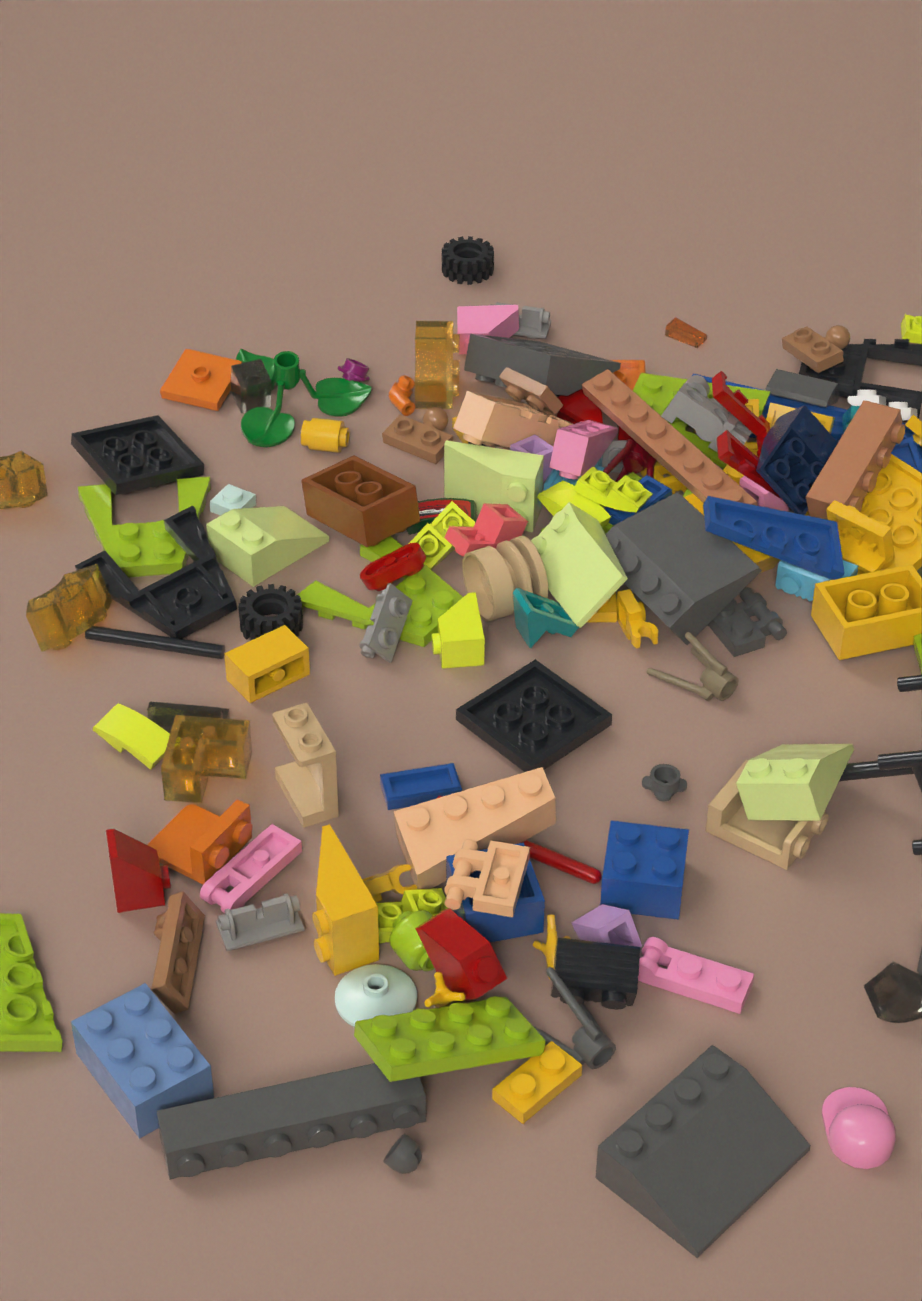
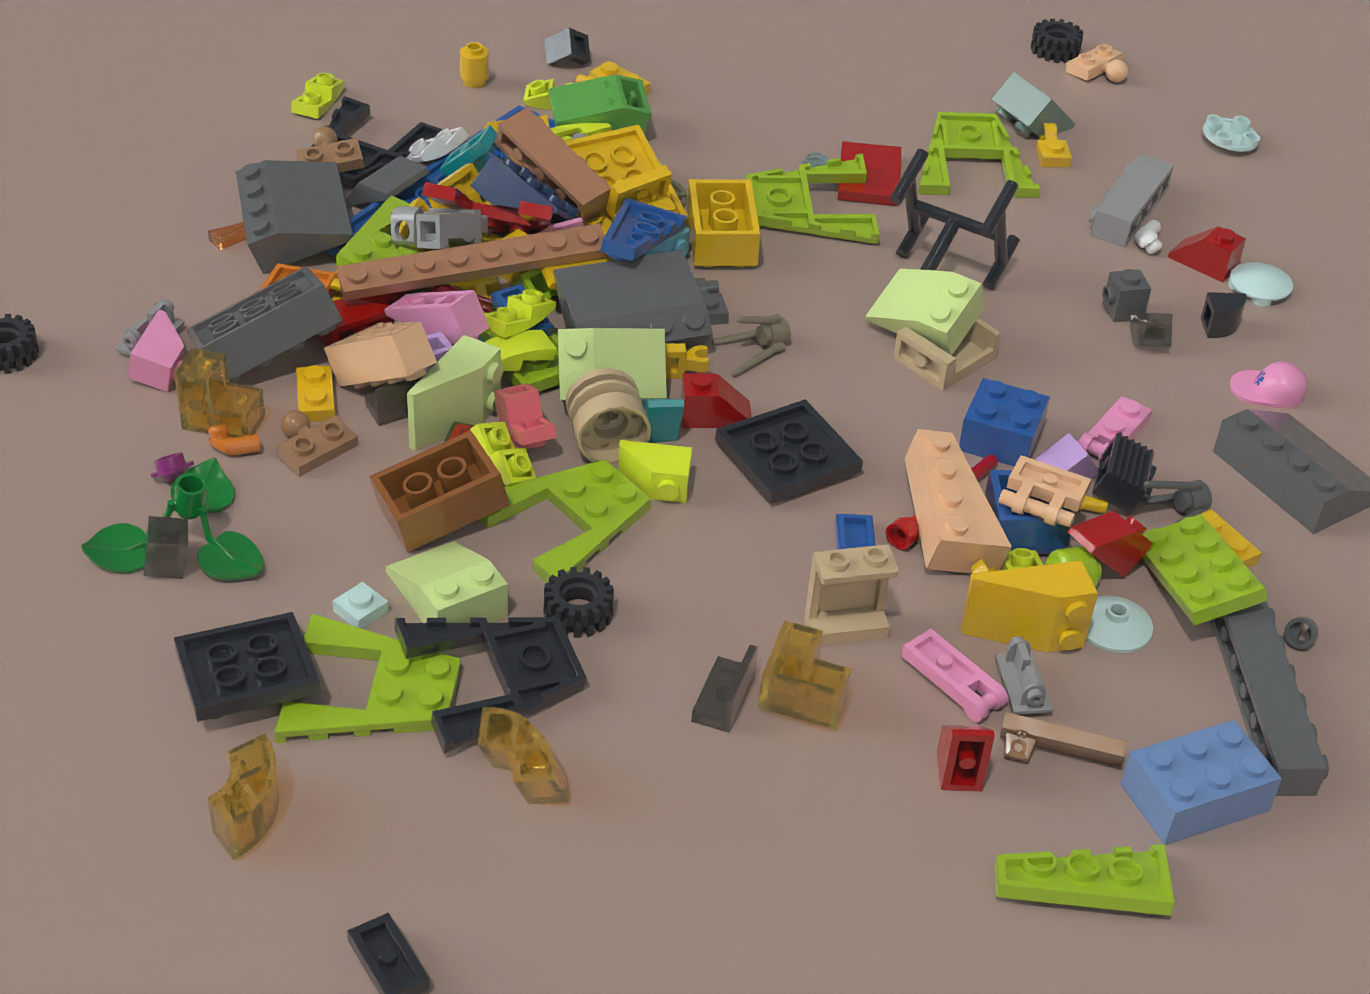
camera: 80 degrees left, 0 degrees up
(135, 733) = (740, 732): neon yellow slope -> none
(155, 642) = (585, 699): black bar -> none
(199, 380) = (111, 594): orange plate -> none
(201, 841) = (914, 699): orange bracket -> none
(267, 663) = (659, 614): yellow brick -> none
(324, 435) = (283, 508): yellow brick -> none
(388, 619) = (644, 523): light grey hinge -> none
(401, 562) = (544, 495): red plate -> none
(443, 995) = (1143, 567): yellow bar -> none
(535, 393) = (345, 324): medium nougat plate -> none
(578, 652) = (711, 402): none -> red slope
(664, 782) = (889, 393): dark grey plate -> none
(716, 341) = (292, 210): none -> dark grey slope

